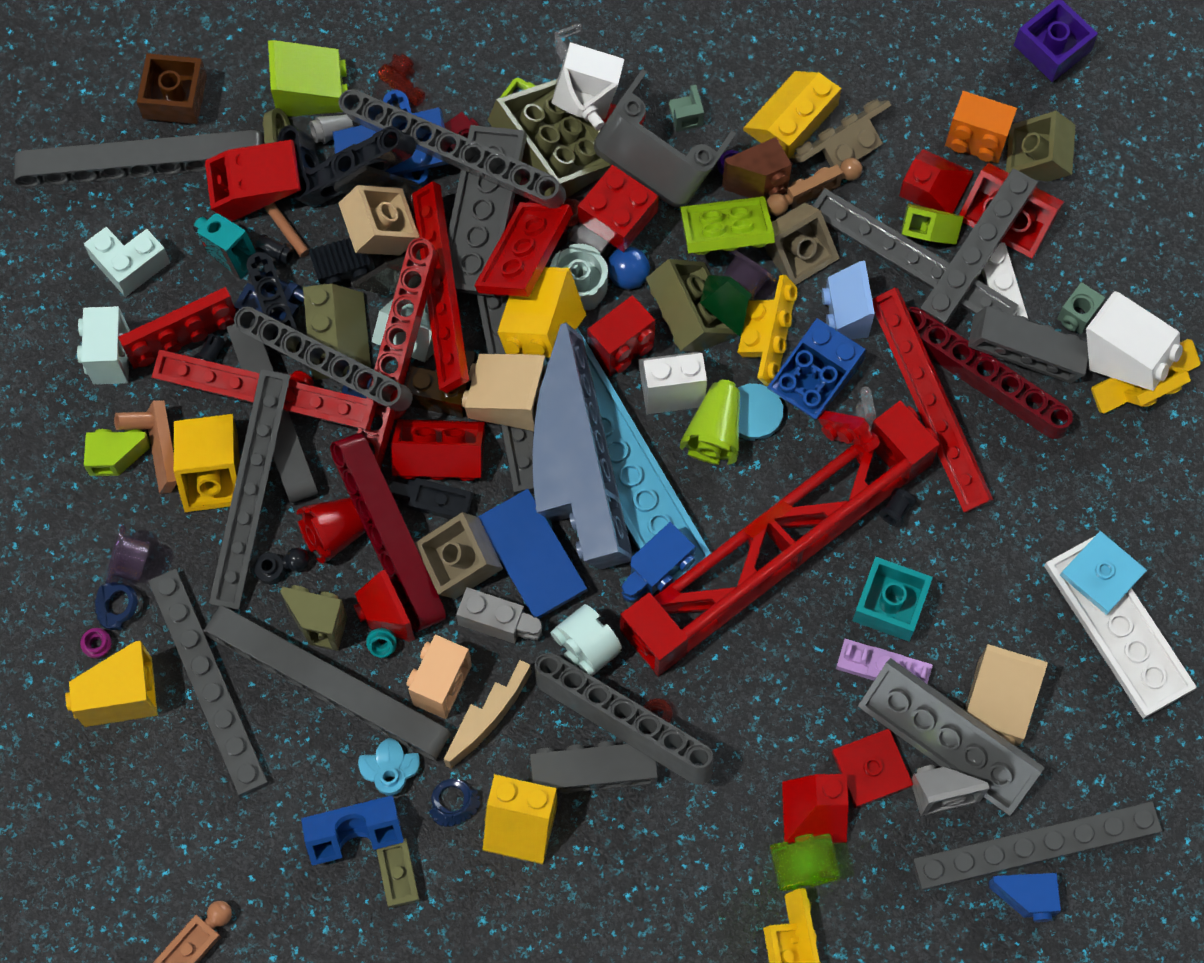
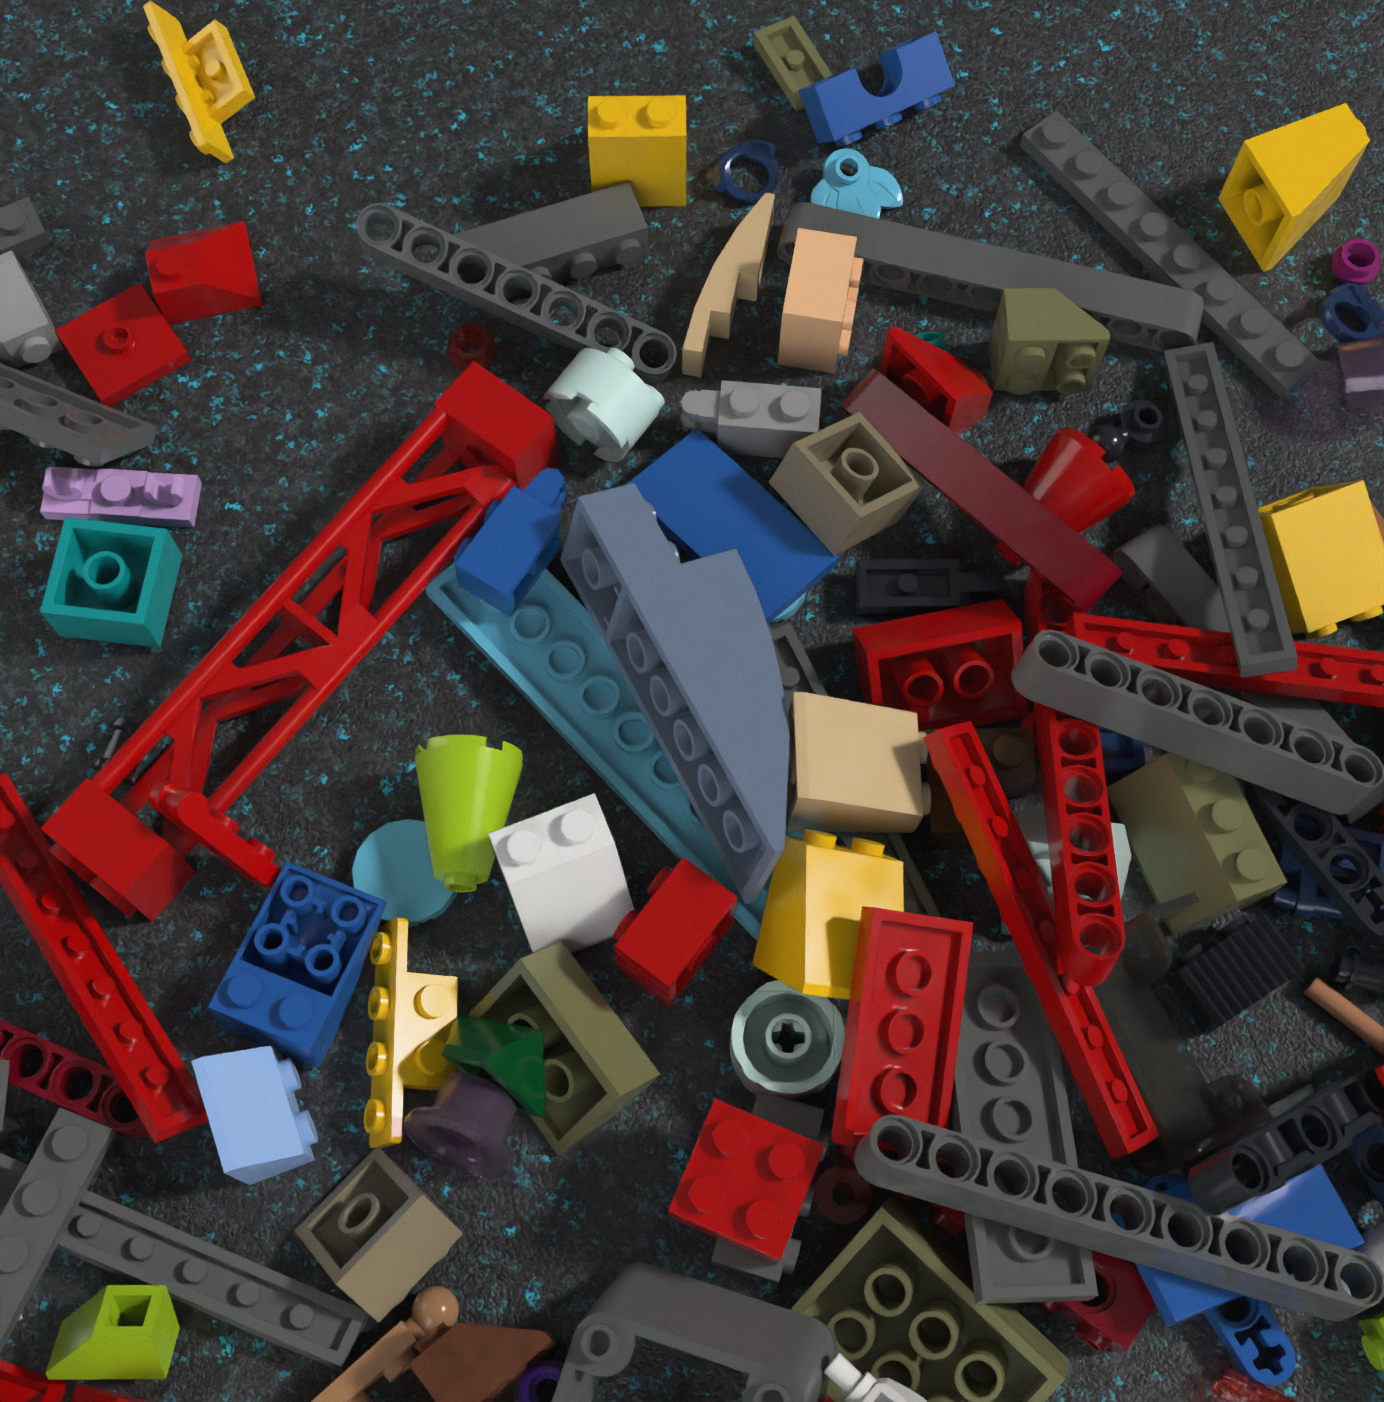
camera: 165 degrees right, 0 degrees up
(378, 220) = (1201, 1043): tan brick -> none
(628, 268) = (690, 1091): blue hair -> none
(727, 225) = (522, 1214): lime plate -> none
(805, 862) = (201, 171): clear neon green brick -> none
(866, 408) = (198, 901): clear piece -> none

